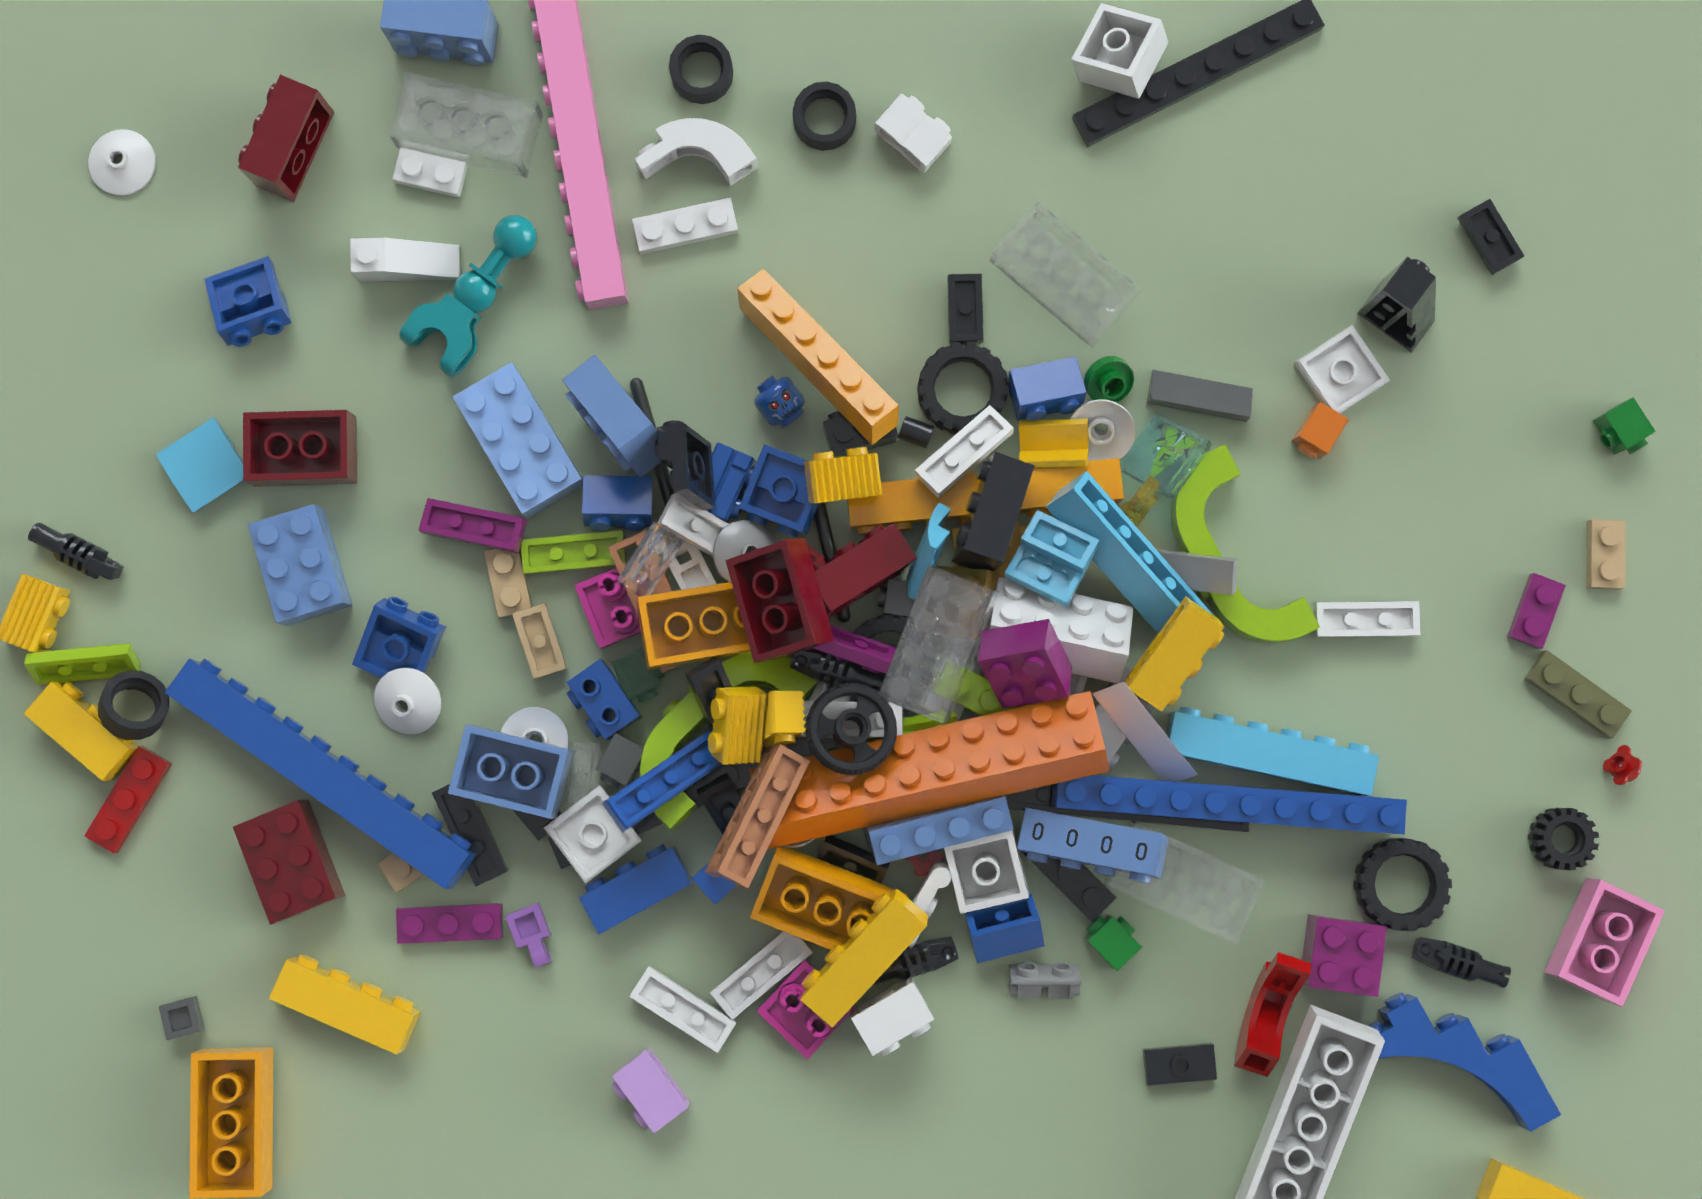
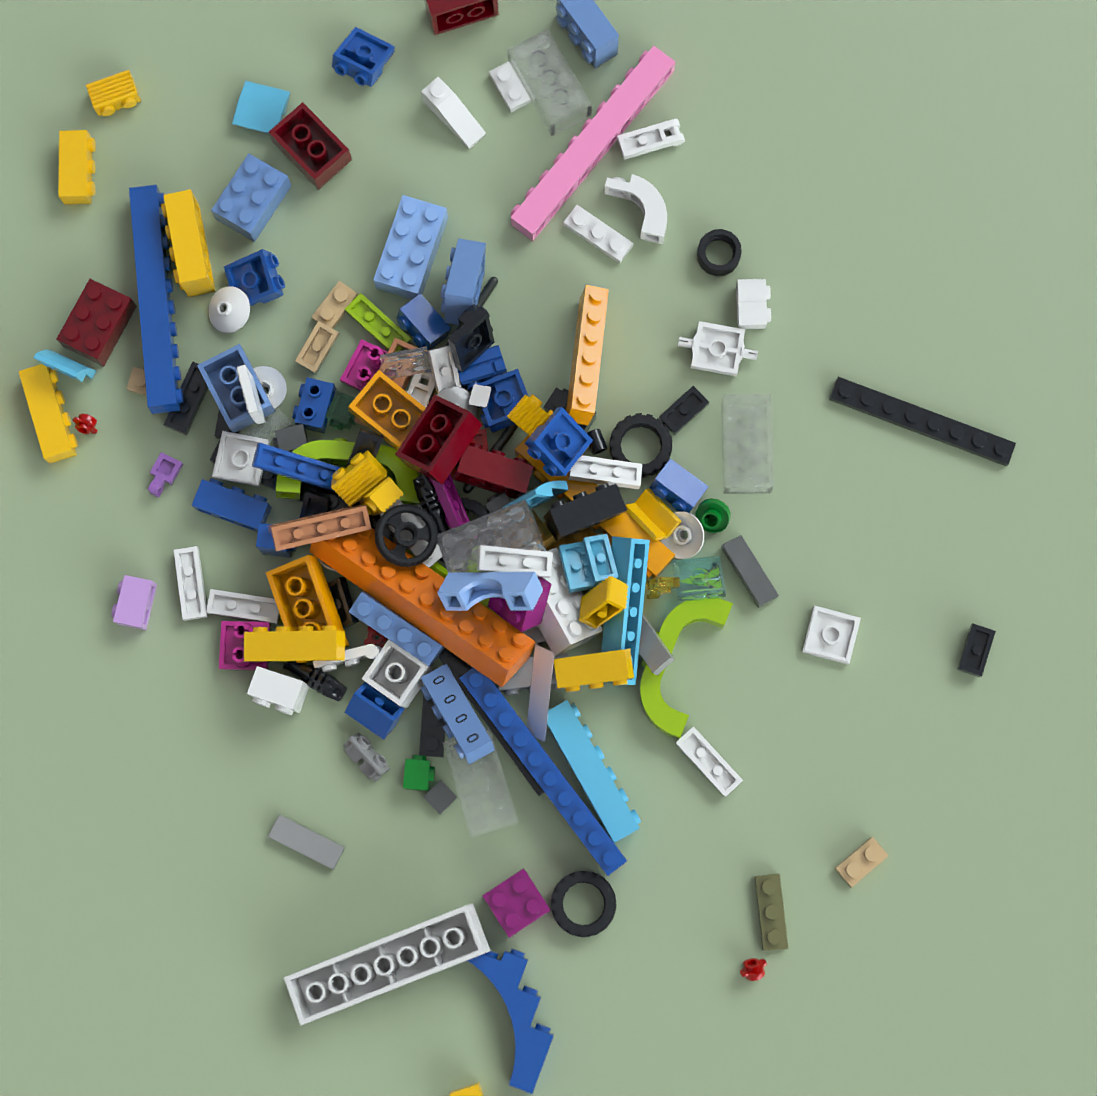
camera: 55 degrees right, 5 degrees down
(76, 552) = (162, 86): black hinge -> none
(81, 663) = (109, 138): lime plate -> none
(128, 799) = (60, 219): red plate -> none
(133, 681) = (96, 188): black tyre -> none
(290, 679) = (188, 243): none -> yellow brick
(308, 939) = (64, 365): none -> medium azure slope
(396, 973) = (85, 424): none -> red plate
(449, 923) = (134, 429): magenta plate -> none
(472, 293) = (466, 160): teal piece -> none
(472, 525) = (347, 263): magenta plate -> none
(541, 763) = (250, 394): none -> white tile
(629, 75) = (650, 139): none -> white plate
(696, 44) = (689, 154): black tyre -> none
(757, 511) = (480, 395): none -> white sticker
(779, 401) = (548, 358): blue head -> none
(896, 474) = (558, 443): none -> blue plate
(929, 212) = (717, 348): none -> white plate
(973, 718) = (465, 589): none -> light blue arch
(991, 637) = (514, 560): none -> white plate
(1080, 1124) = (306, 842): none -> light grey tile
(1112, 579) = (603, 602): none -> yellow brick
(1120, 50) = (891, 369): white brick -> none
(1156, 937) = (440, 797): none -> dark grey tile
(1179, 1064) = (384, 867): black plate -> none
(1267, 1013) = (450, 889): red arch -> none
(1319, 431) = (786, 649): orange brick -> none
(1403, 303) = (893, 632): black wedge -> none
(1459, 961) = (568, 970): black hinge -> none
(1536, 611) = (796, 850): magenta plate -> none
(1583, 838) = (698, 978): black tyre -> none
(1604, 941) = (647, 1038): bright pink brick -> none
(1624, 427) = (938, 810): green brick -> none

